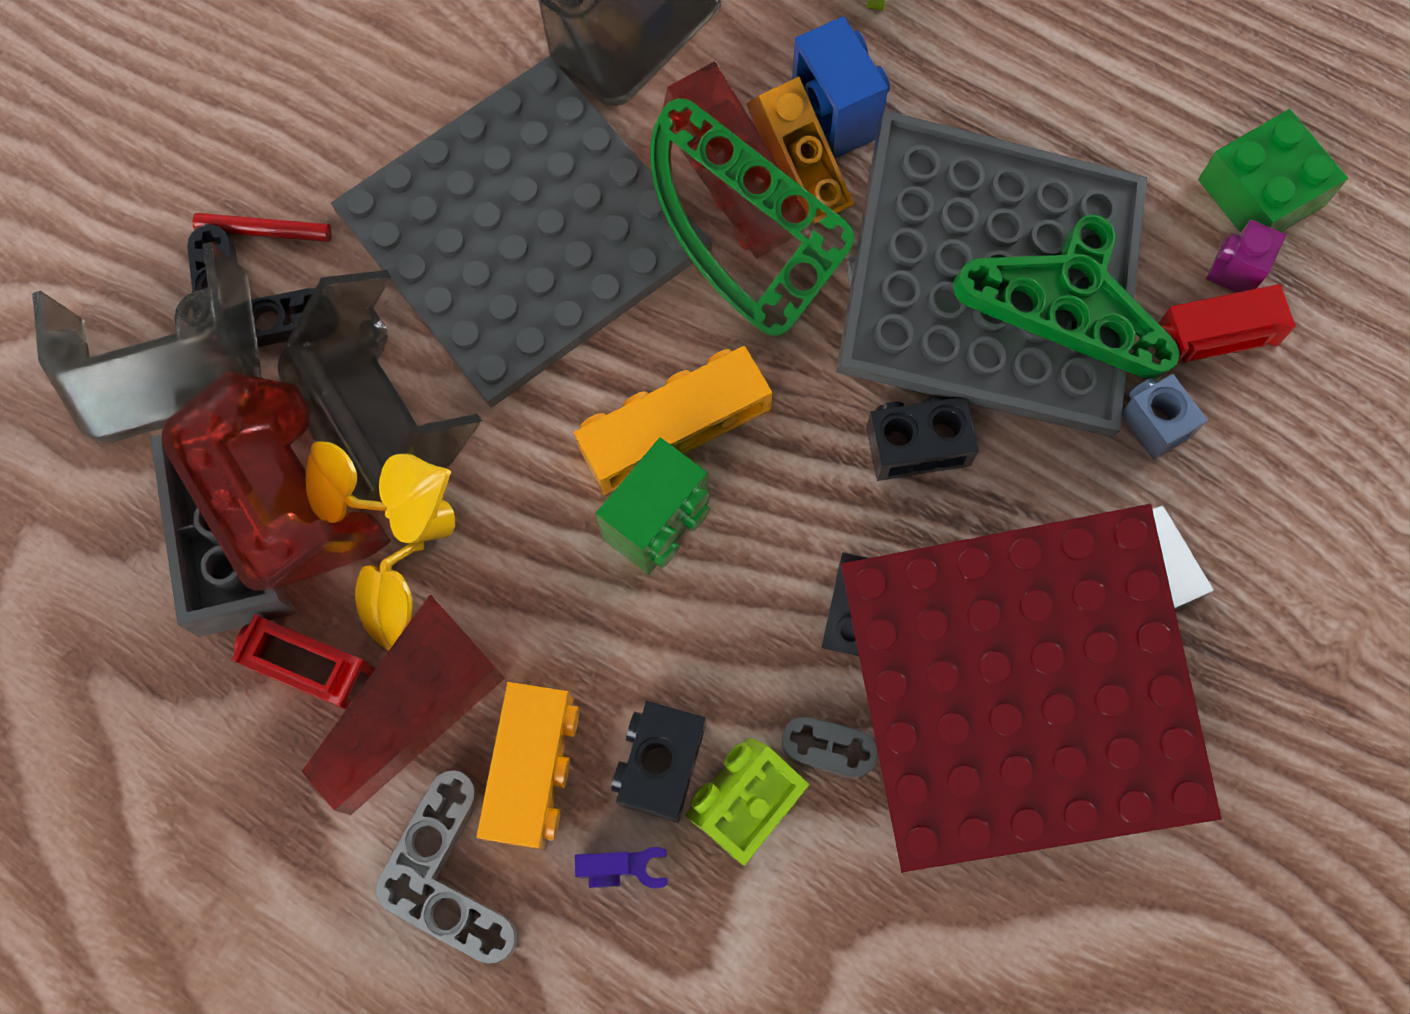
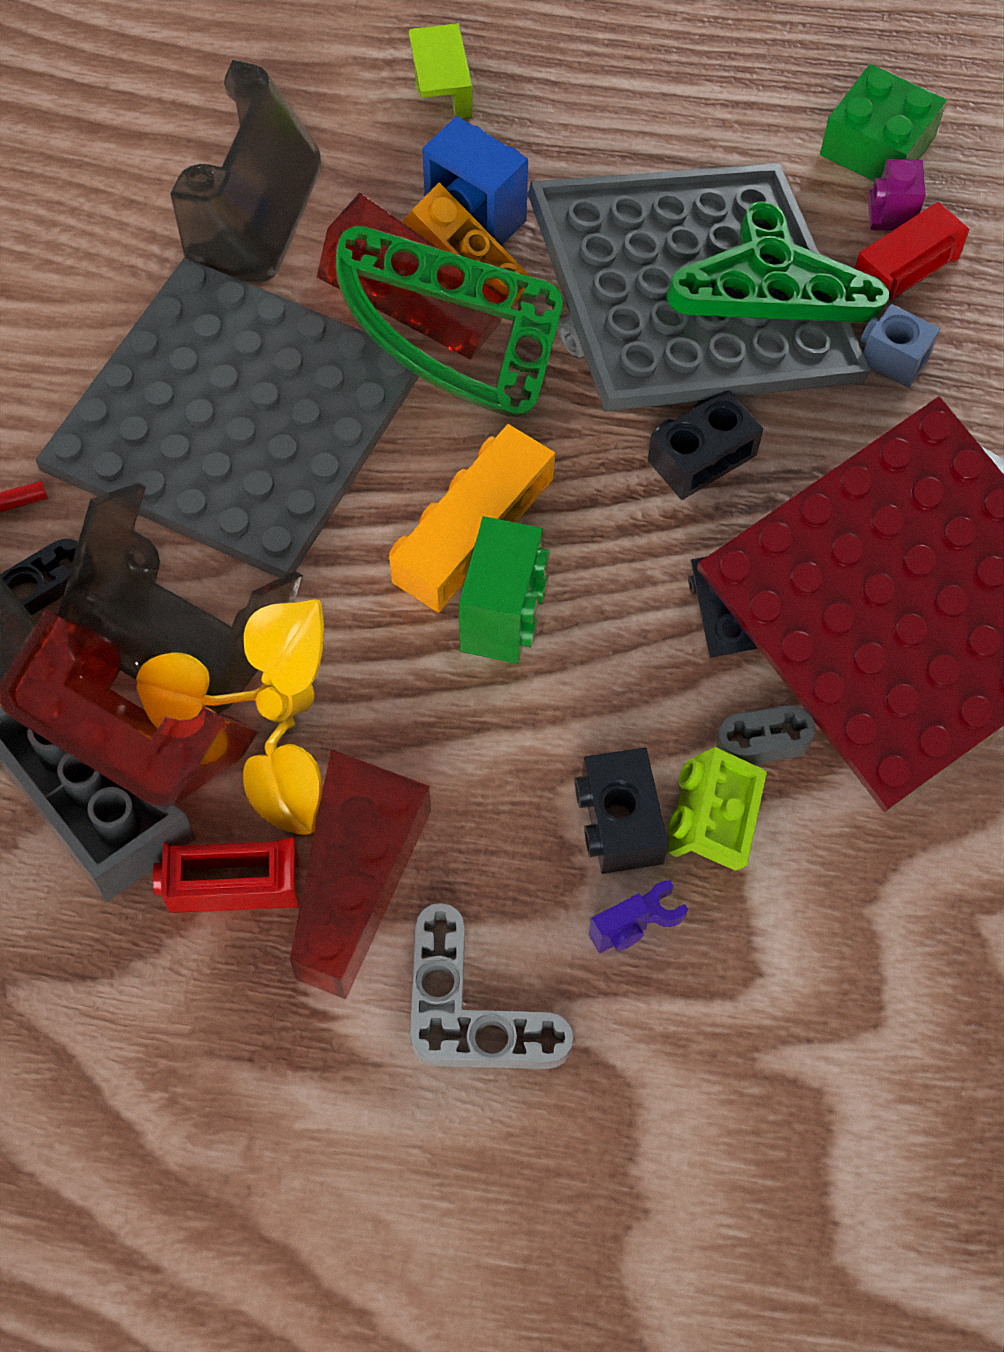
camera: 30 degrees left, 10 degrees down
(528, 767) = (502, 870): light orange brick -> none

